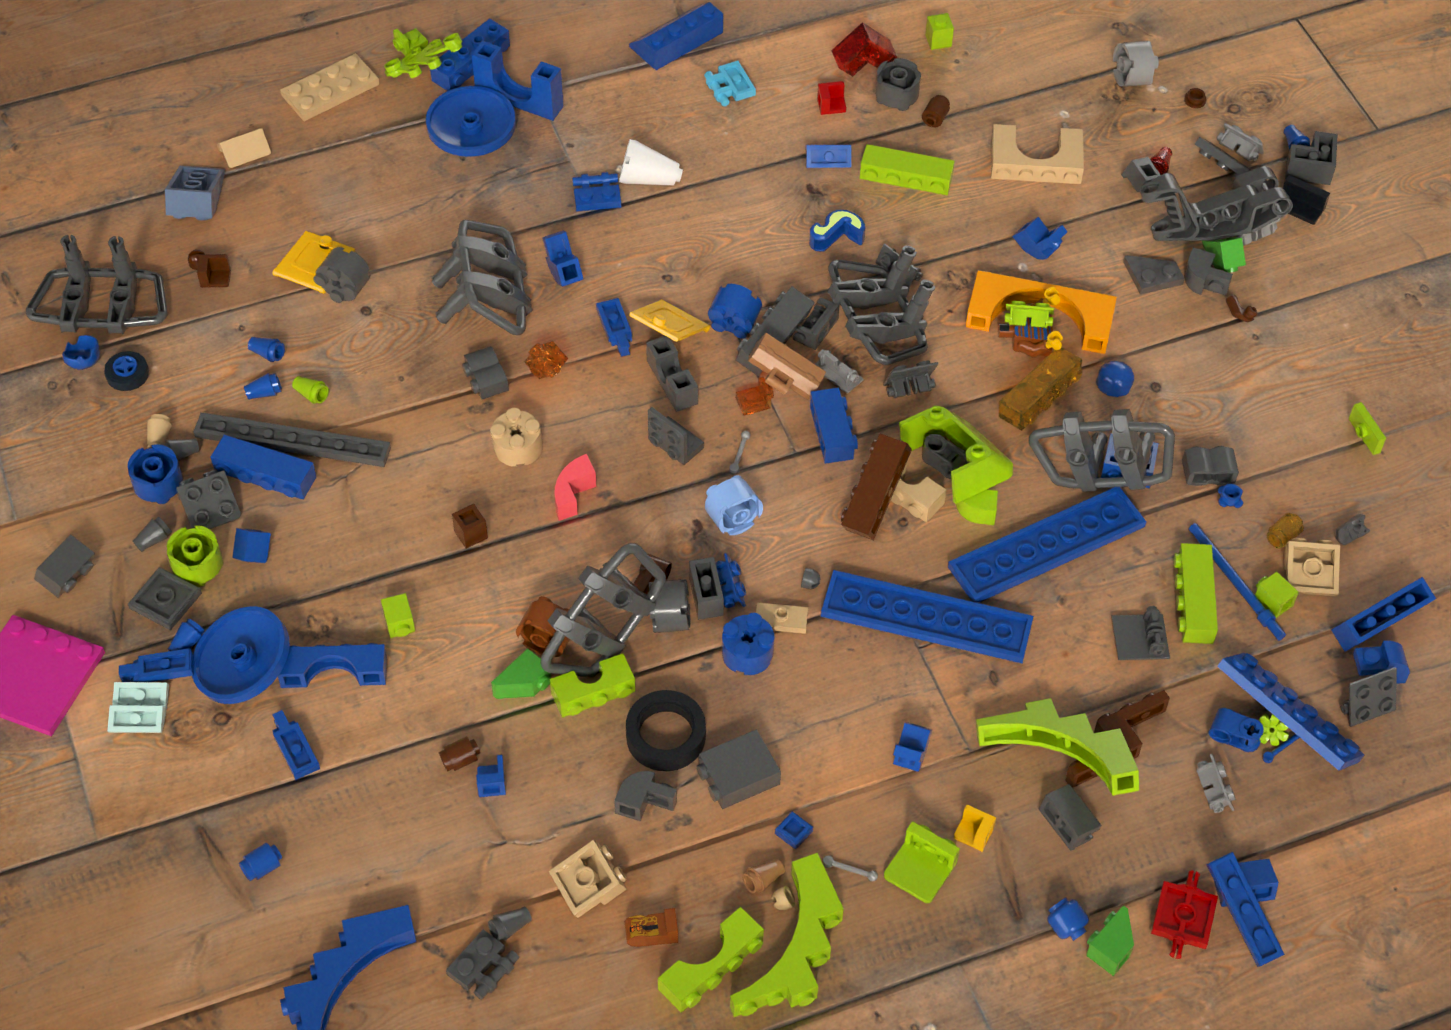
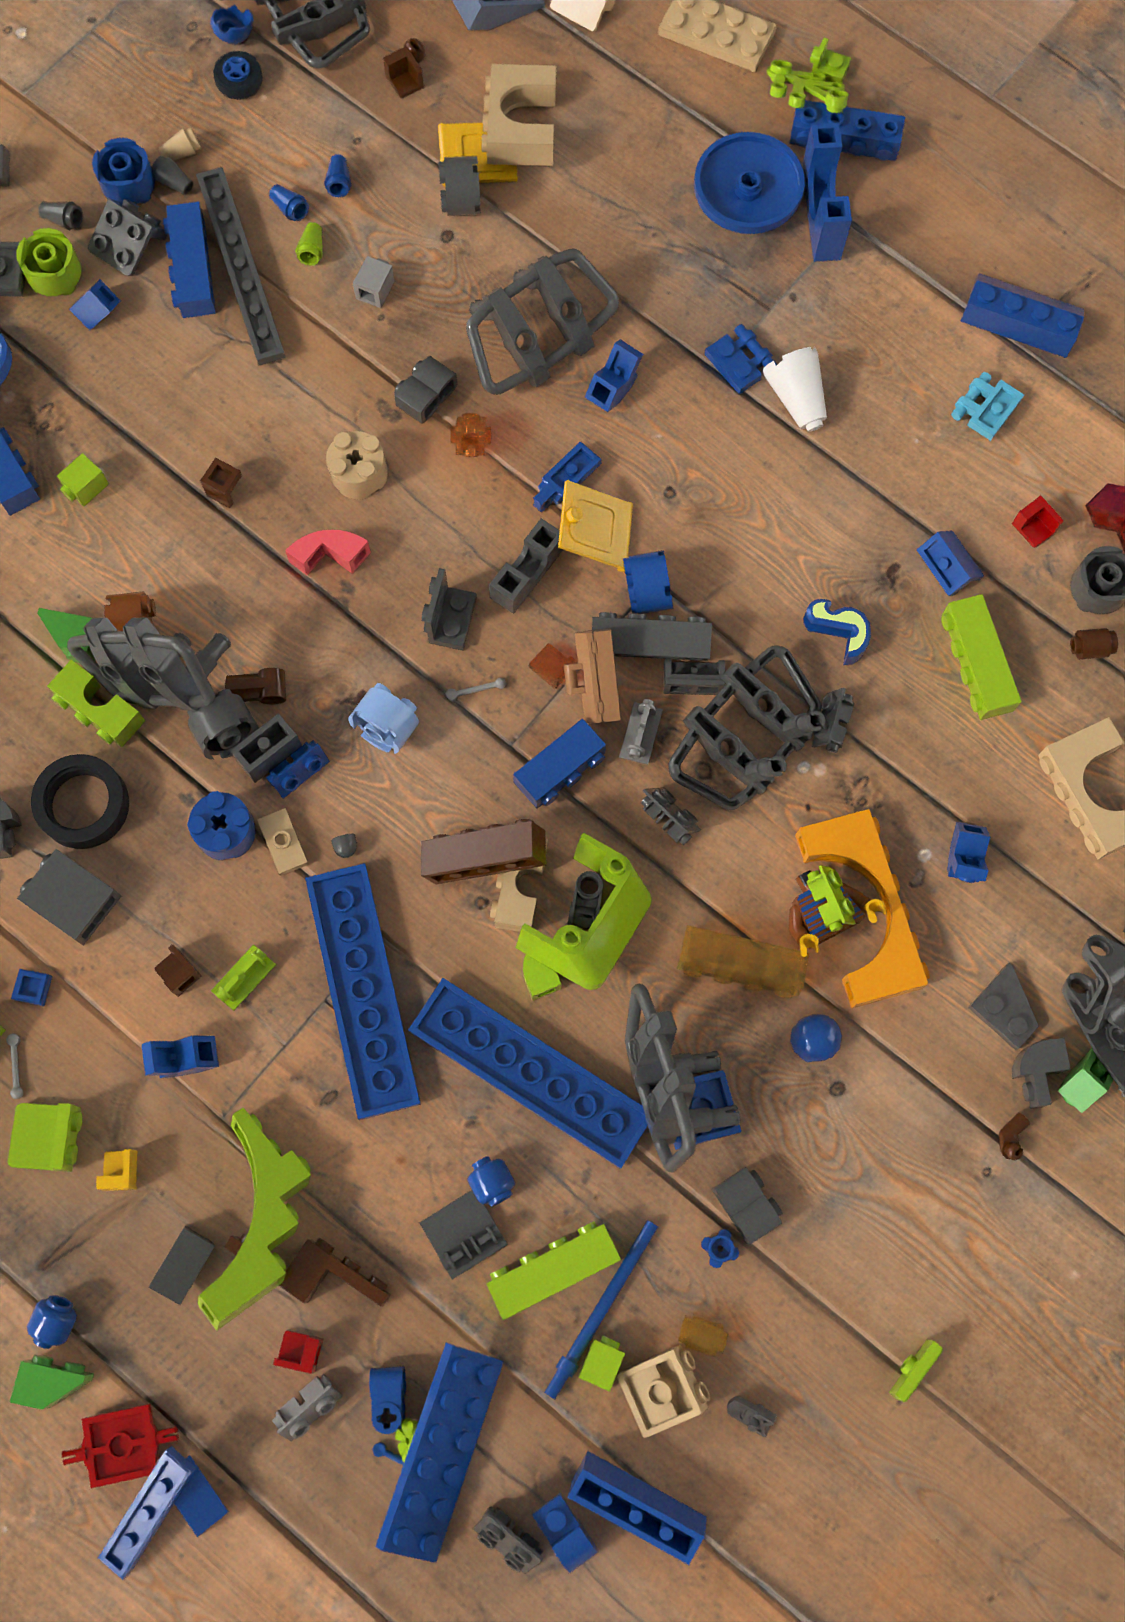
camera: 60 degrees right, 20 degrees up
(325, 233) = (508, 140): none -> tan arch
(374, 364) = (374, 281): none -> light grey brick
(841, 724) = (177, 971): none -> reddish brown panel
(871, 685) = (243, 977): none -> lime hinge
(1114, 598) = (491, 1181): none -> blue head
(1175, 770) = (299, 1352): none -> red panel

